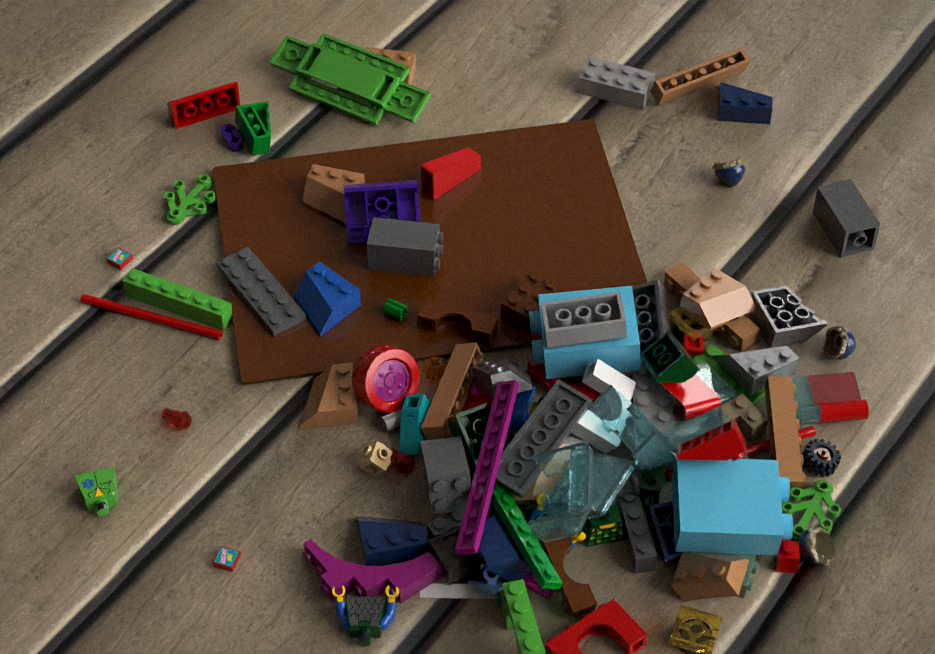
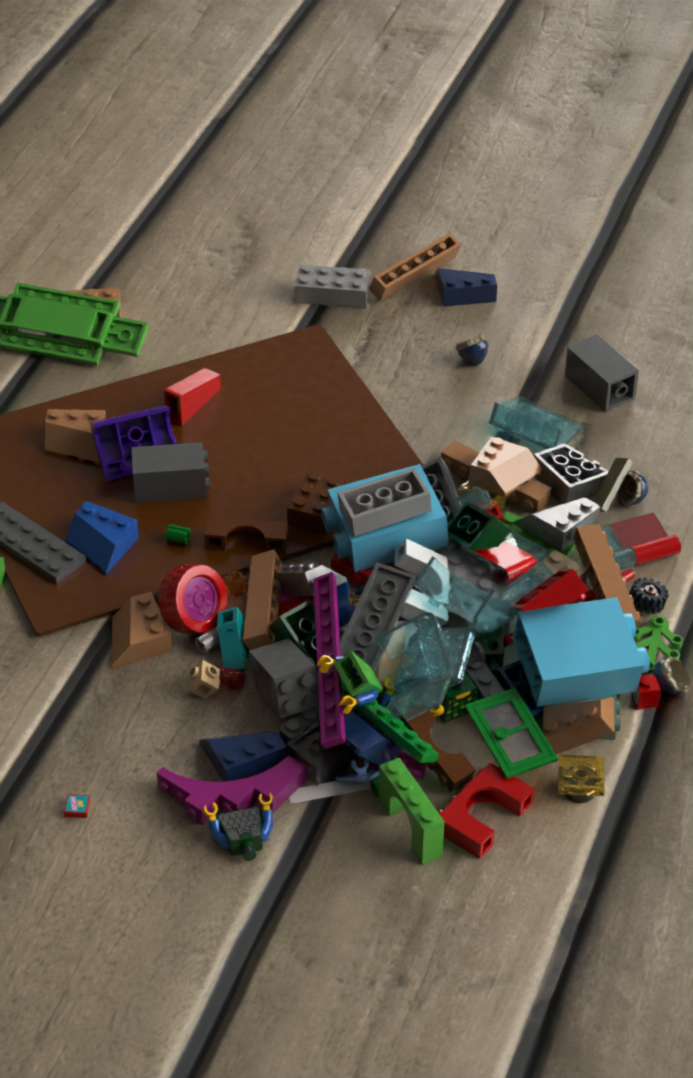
camera: 15 degrees left, 5 degrees down
(506, 493) = (357, 677): none -> bright green torso
(641, 574) = (511, 733): none -> green door
(681, 328) = (477, 497): none -> clear light blue brick
(766, 257) = (534, 422): none -> clear light blue slope
(819, 336) = (612, 483): none -> olive tile

